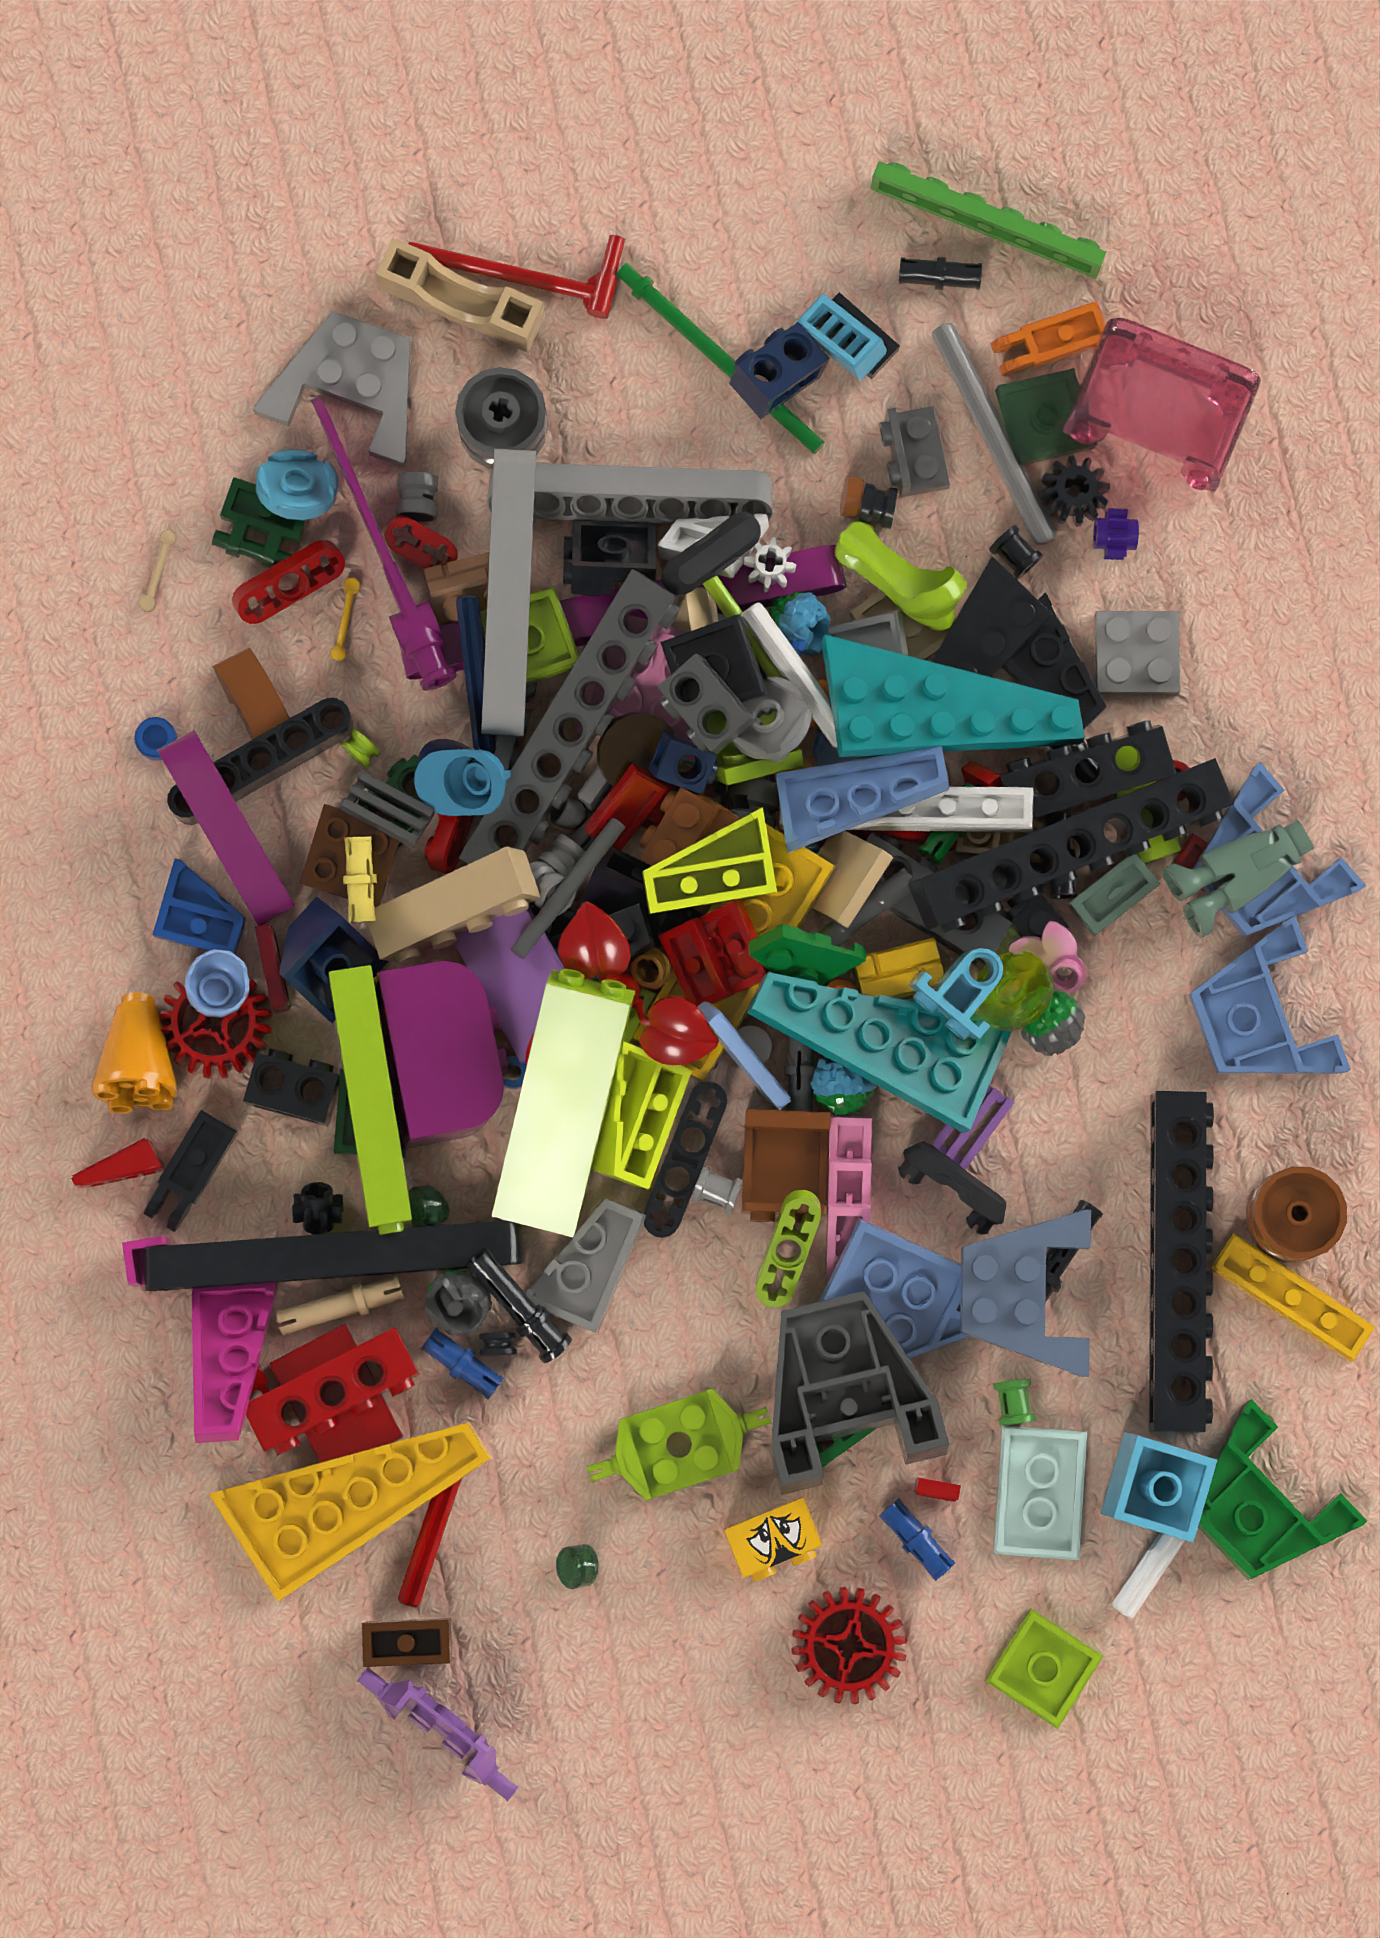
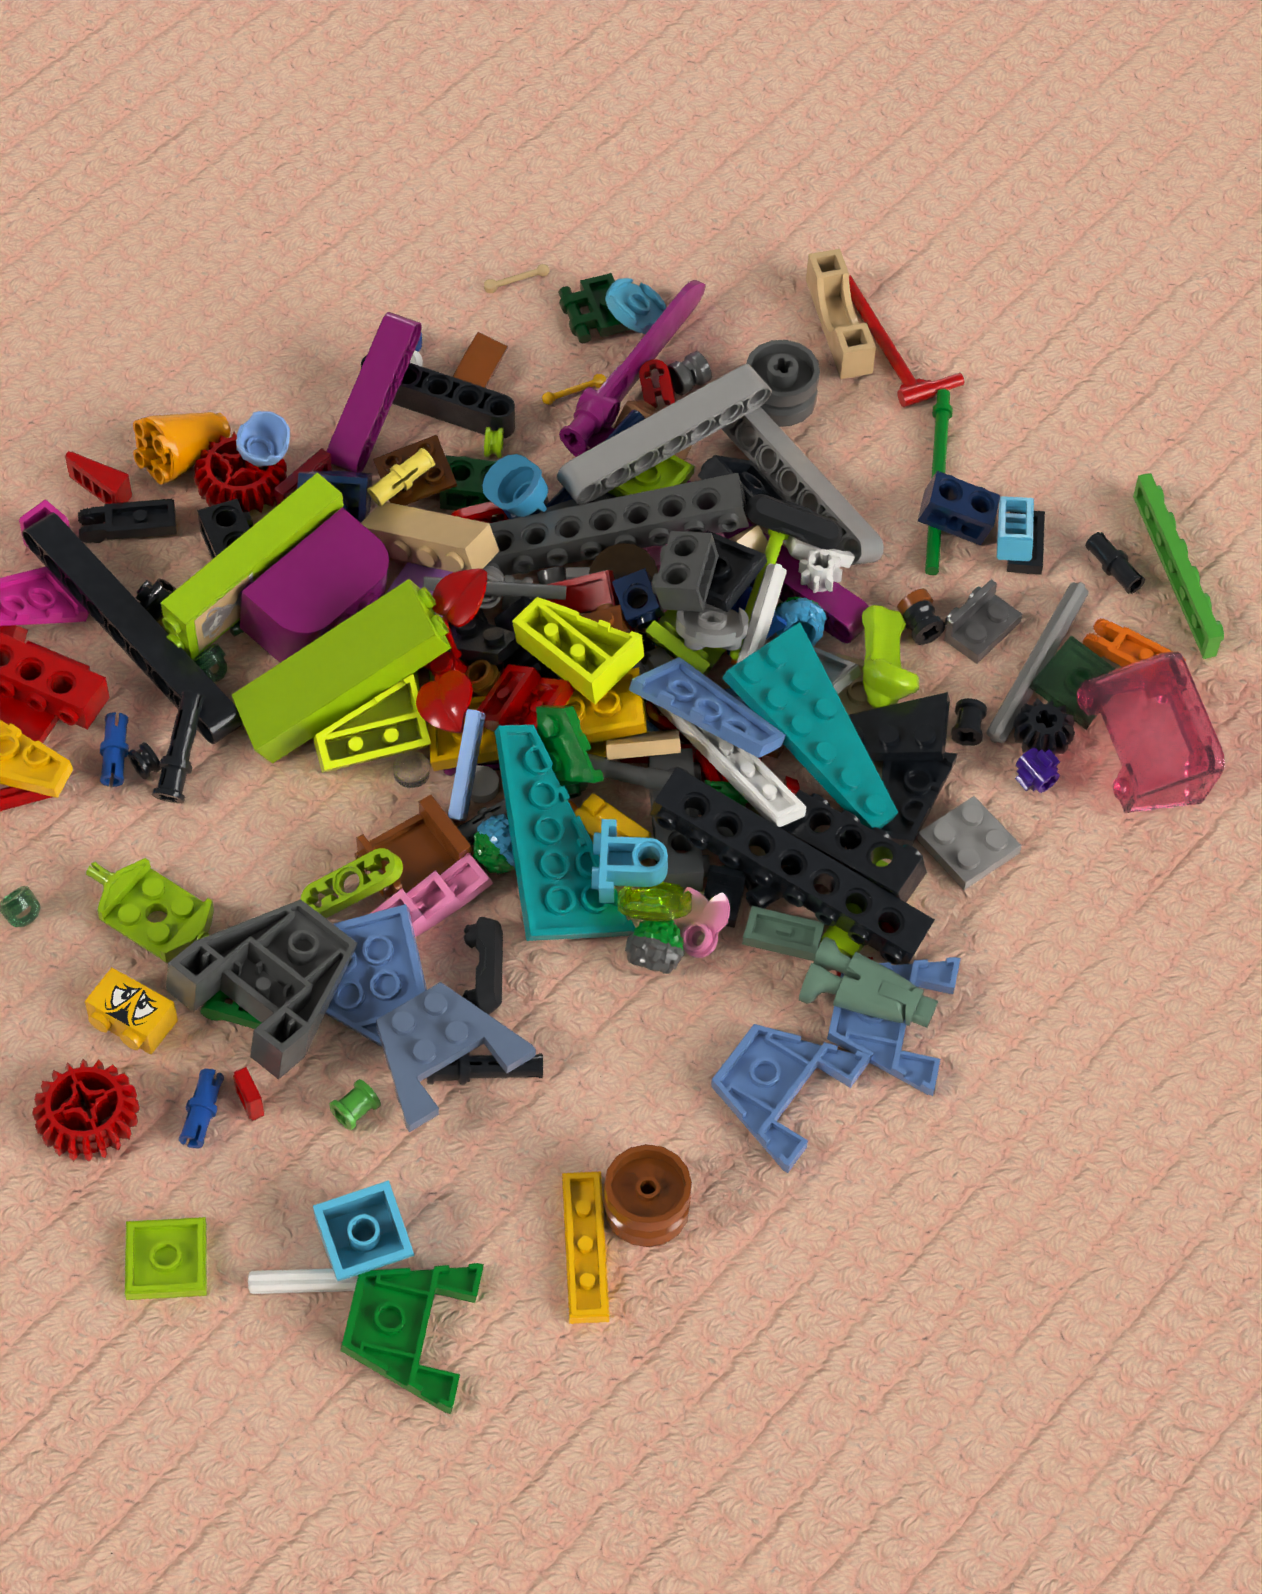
camera: 55 degrees right, 25 degrees down
(197, 914) = (309, 422): blue wing -> none
(284, 598) = (545, 342): red beam -> none
(341, 1304) = (112, 663): tan pin -> none
(355, 366) = (743, 295): light grey wing -> none
(367, 781) = (460, 447): dark grey tile -> none
(457, 1302) = (153, 714): dark grey piece -> none
(589, 1268) = (235, 783): light grey wing -> none
(686, 1159) = (368, 794): black beam -> none
(716, 1190) = (359, 820): light grey bush -> none
(993, 1095) = (516, 946): medium lavender tile -> none
(1040, 1492) = (300, 1170): light aqua tile -> none
(1165, 1411) = (651, 1066): black brick -> none

